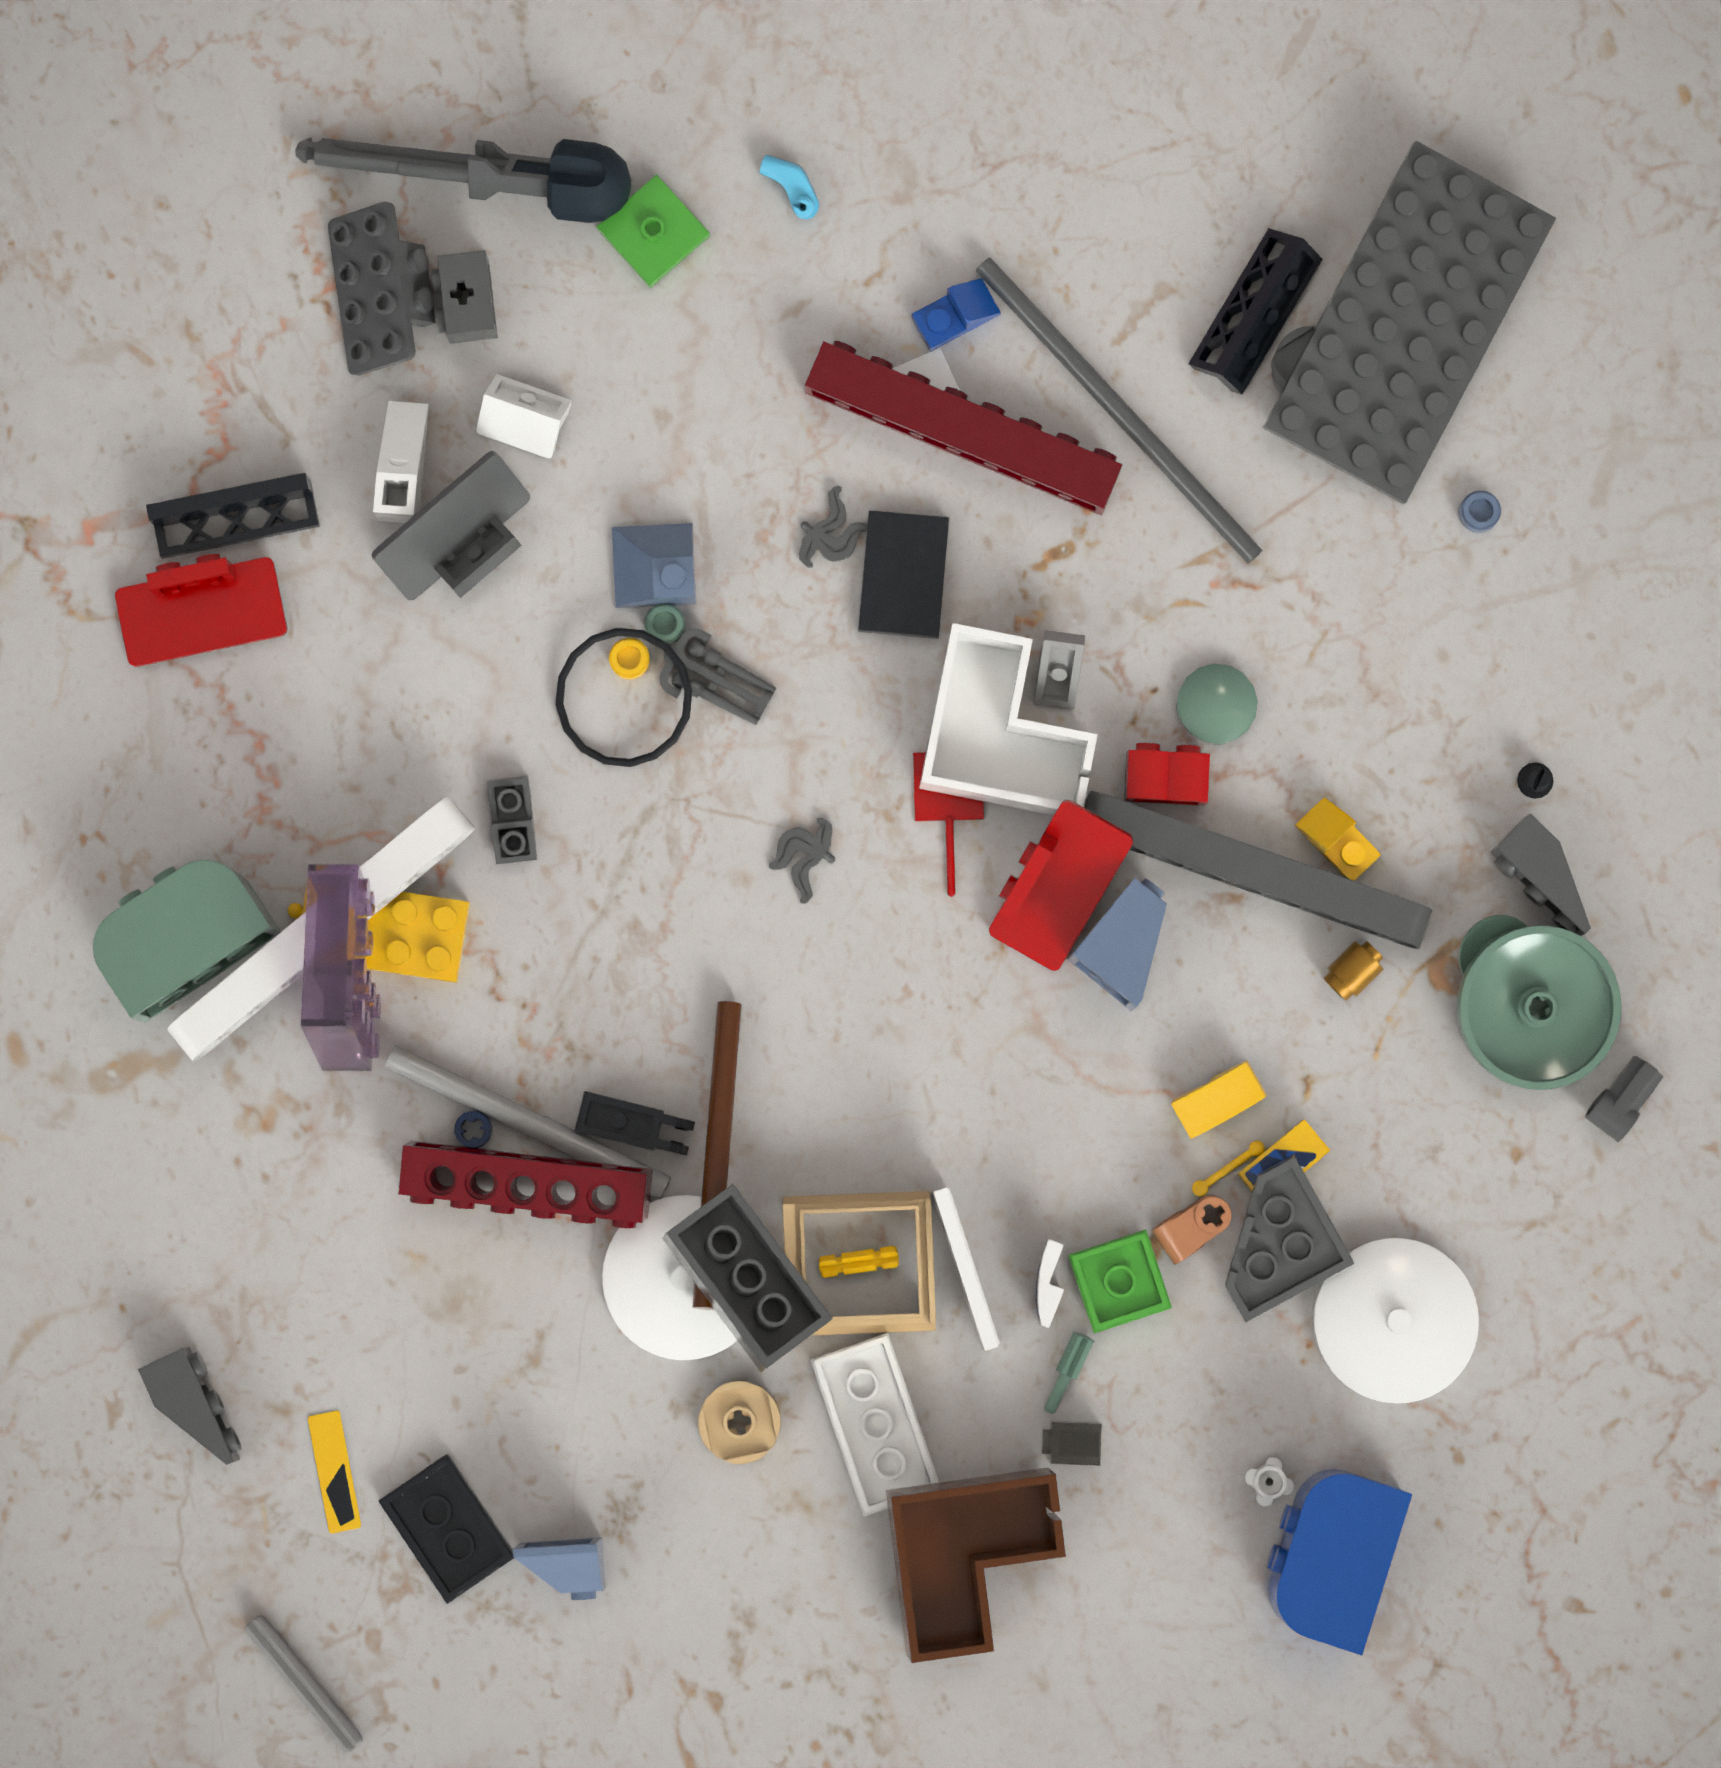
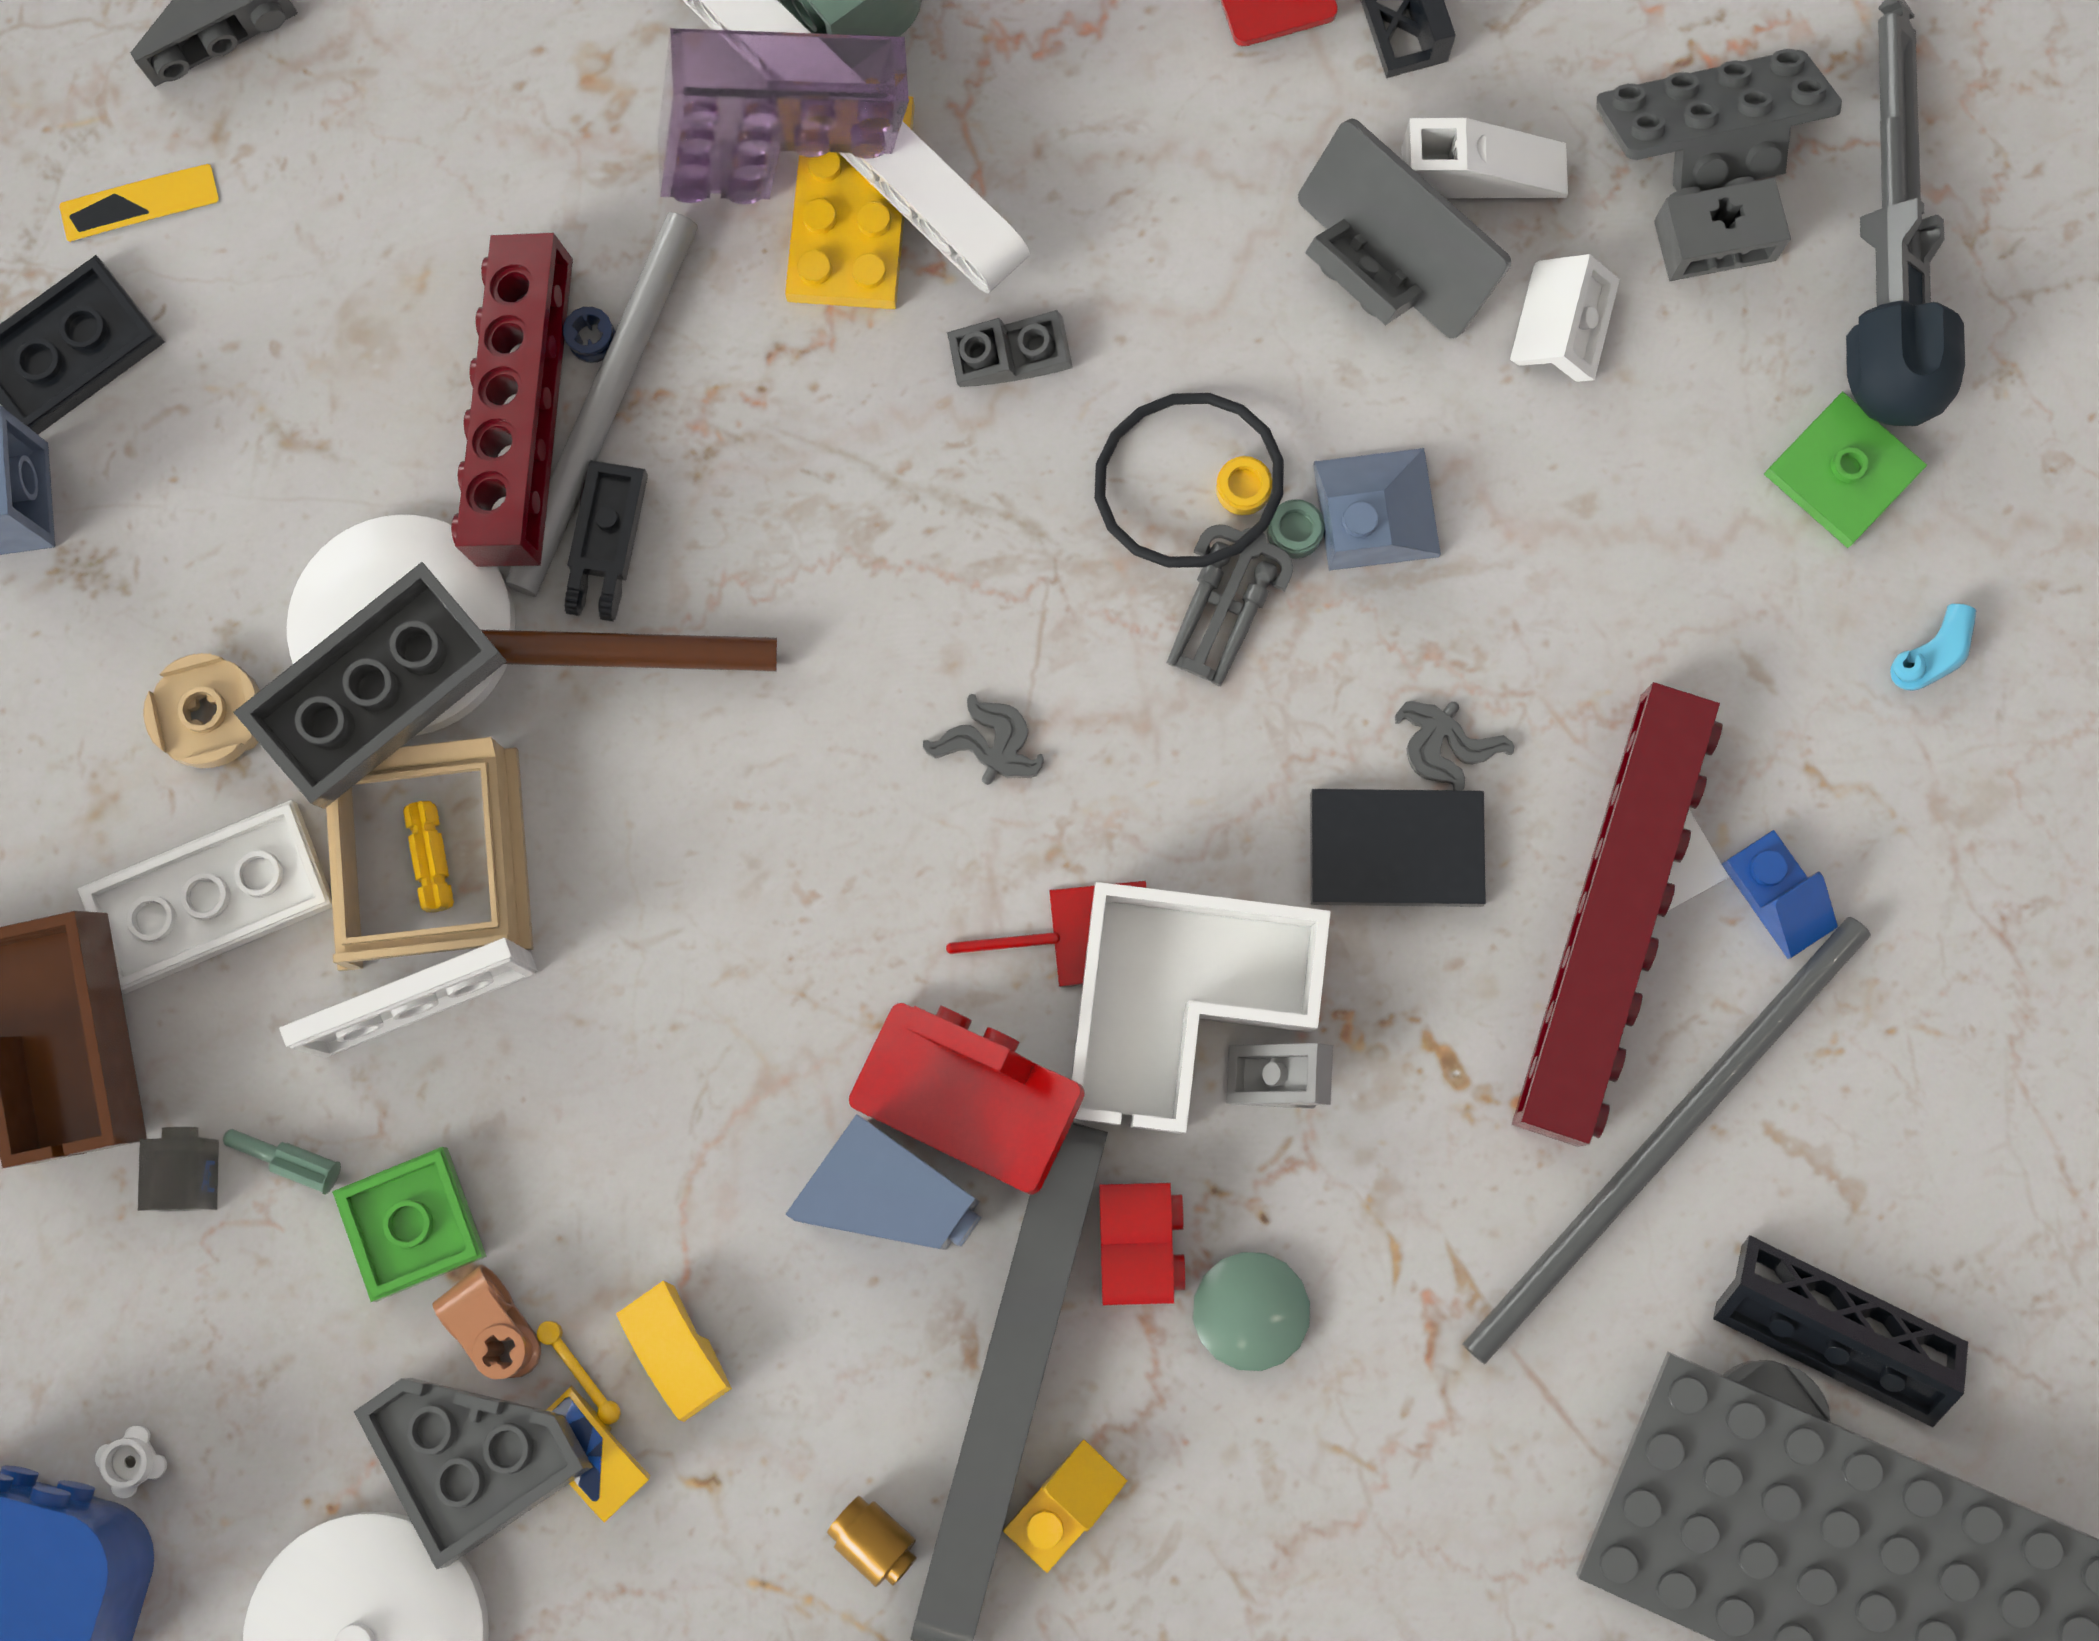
camera: 90 degrees right, 5 degrees down
(1047, 1295) = (392, 1120): white slope -> none

